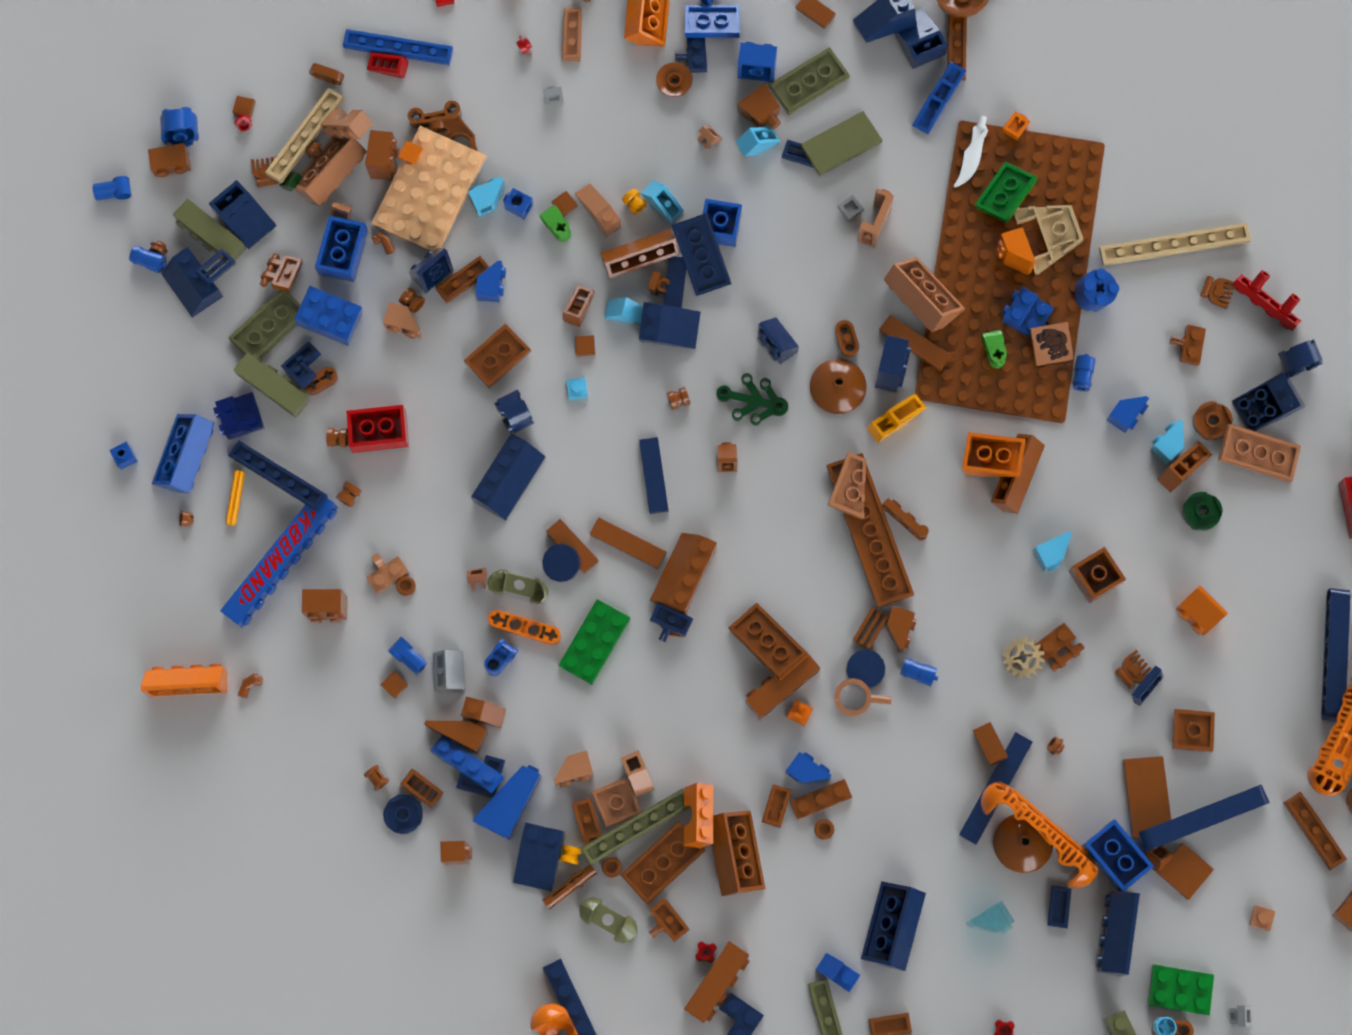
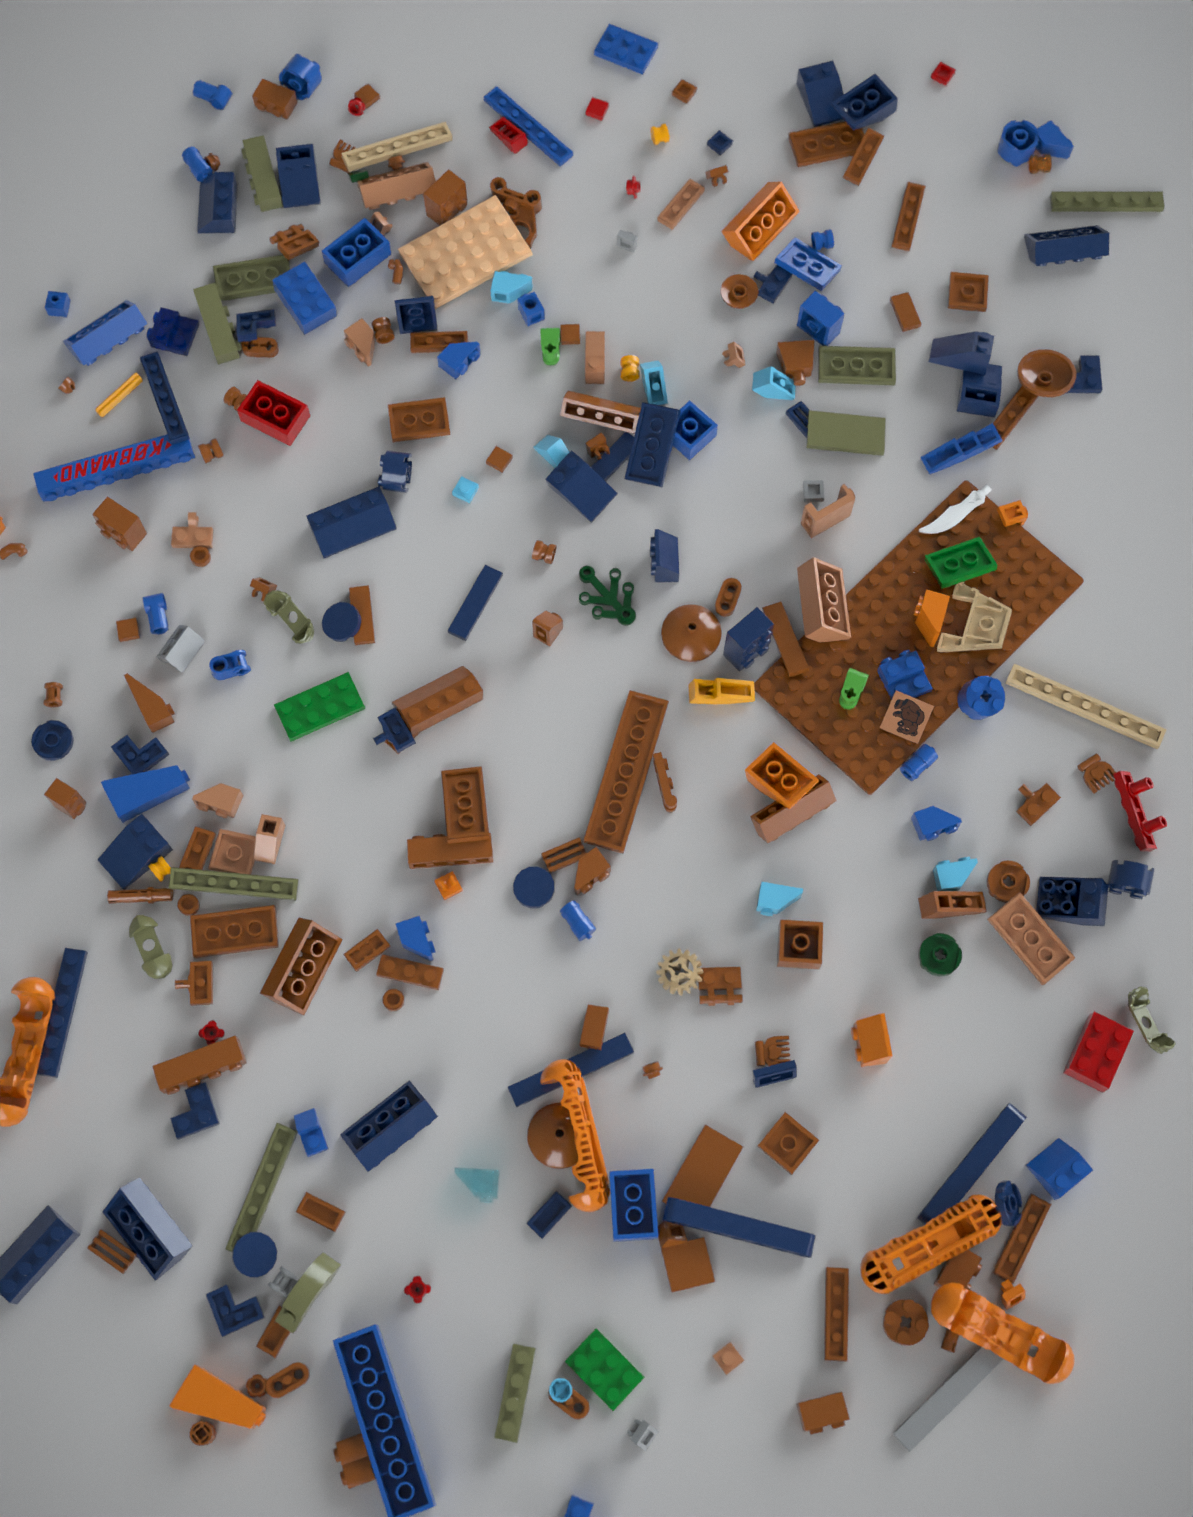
camera: 30 degrees right, 5 degrees down
(204, 277) = (241, 203): dark blue tile -> none
(326, 74) = (452, 110): dark orange beam -> none
(343, 125) = (434, 155): nougat arch -> none
(404, 783) = (81, 712): dark orange slope -> none
(410, 153) = (470, 210): orange tile -> none
(467, 764) = (133, 733): blue plate -> none
(483, 712) = (181, 700): dark orange slope -> none
(523, 630) = (271, 654): orange beam -> none
(572, 315) = (506, 425): dark orange slope -> none
(628, 543) = (410, 644): dark orange tile -> none
(700, 829) = (284, 920): orange arch -> none
(849, 488) = (633, 721): nougat wing -> none
(854, 697) = (505, 904): piece -> none
(1118, 933) = (583, 1274): dark blue slope -> none

